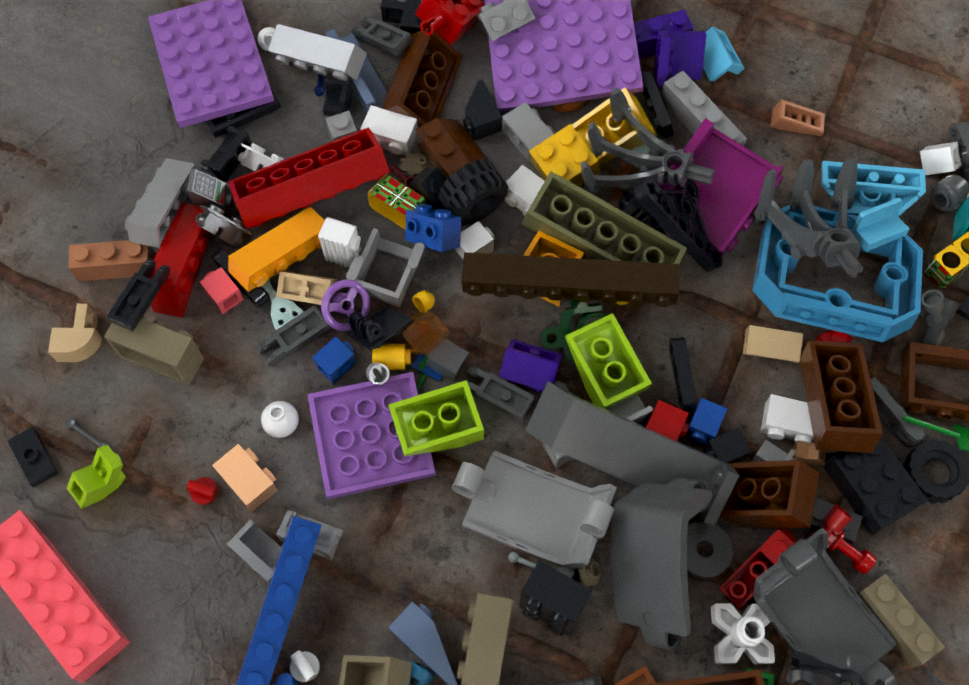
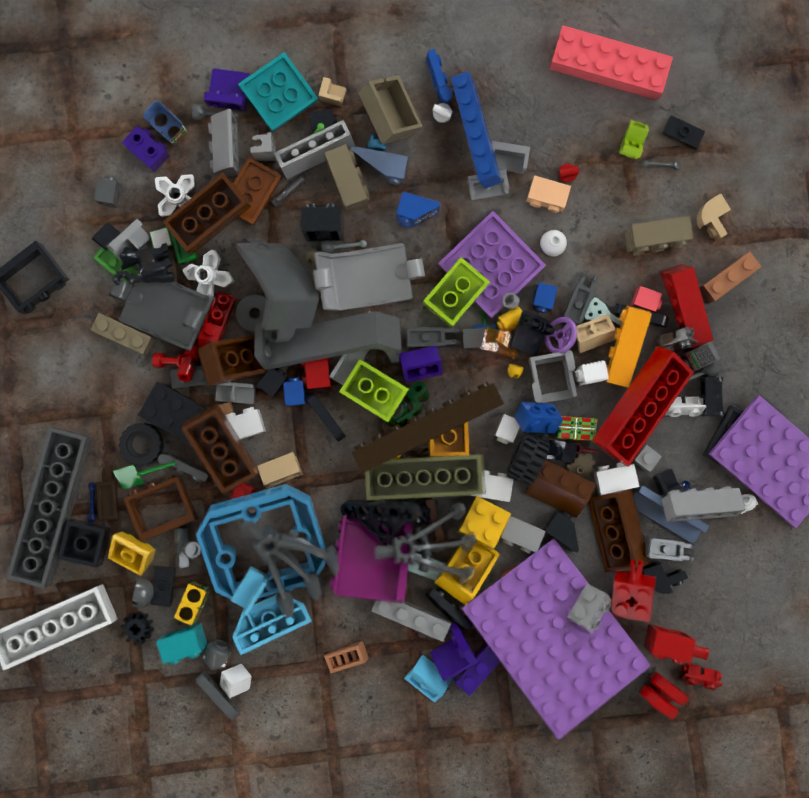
camera: 150 degrees right, 20 degrees up
(138, 295) = (686, 251): black hinge -> none
(159, 203) = (725, 330): light grey brick -> none
(423, 550) = (415, 210): none -> blue slope

